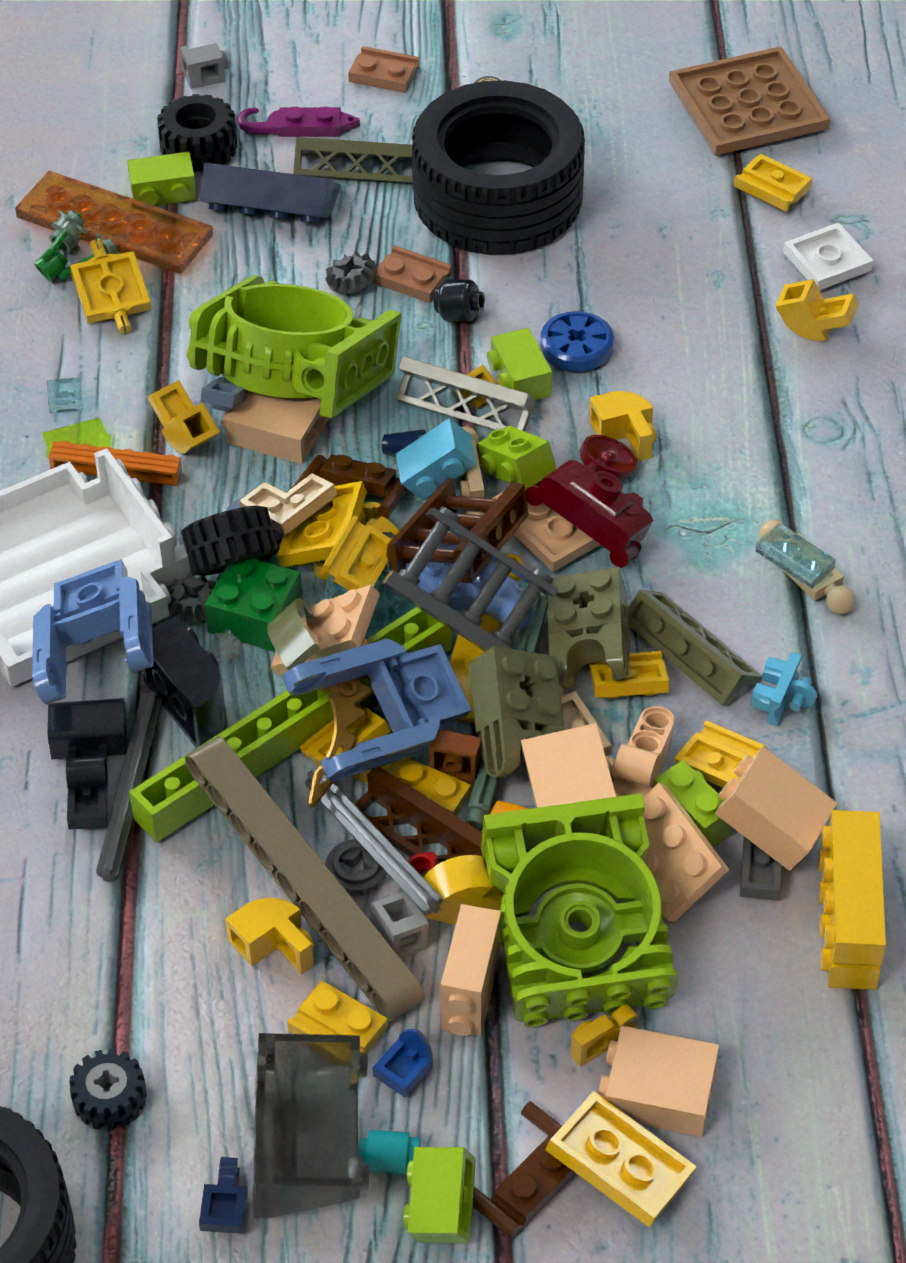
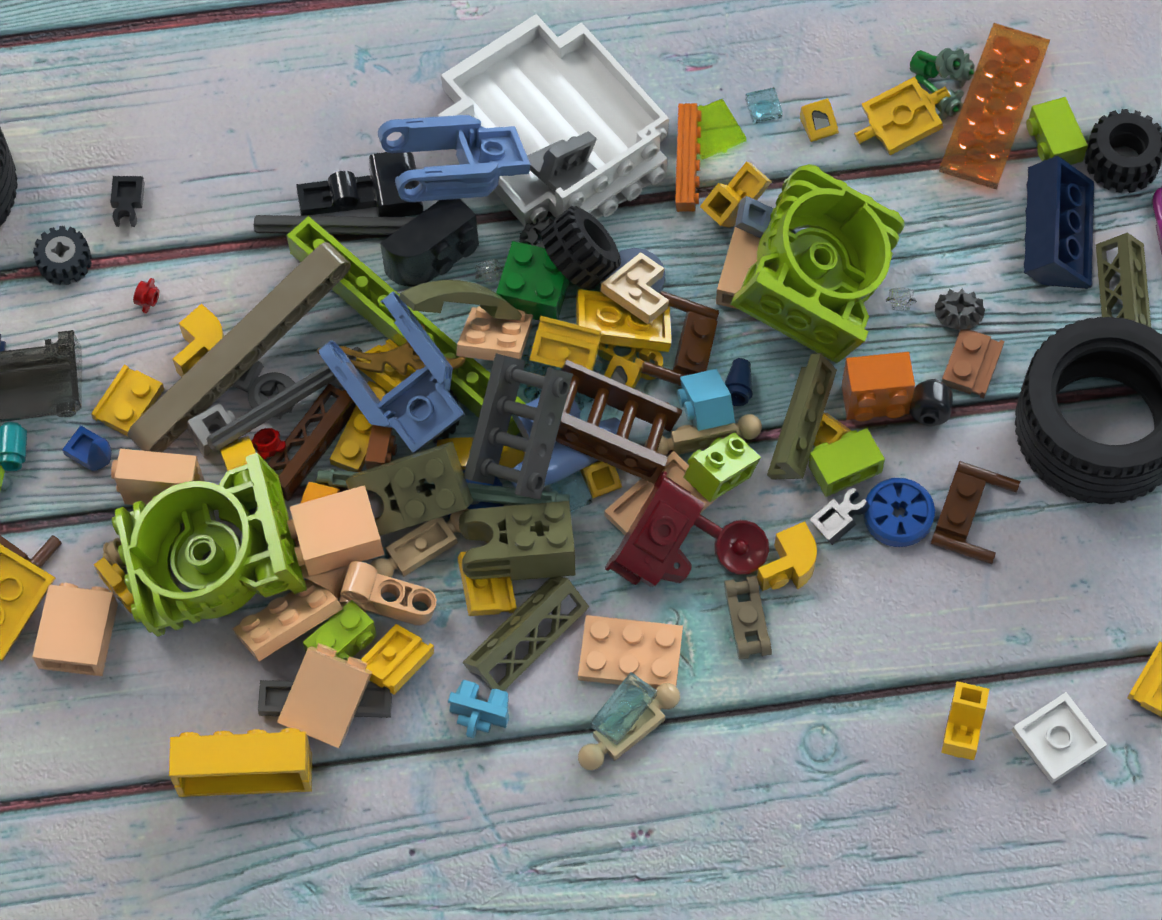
camera: 85 degrees right, 15 degrees up
(32, 1010) = (126, 195): none -> black plate
(95, 356) = (818, 120): none -> yellow slope
(109, 544) = (564, 162): none -> dark grey bracket
(190, 991) = (146, 294): none -> red plate
(441, 324) = (878, 386): none -> orange brick
(556, 1035) = (111, 552): none -> tan plate
(576, 296) = (961, 508): none -> reddish brown plate
(579, 382) = (836, 519): none -> plate
(685, 466) = (747, 618): none -> dark tan plate
(717, 564) = (624, 646): none -> light nougat plate

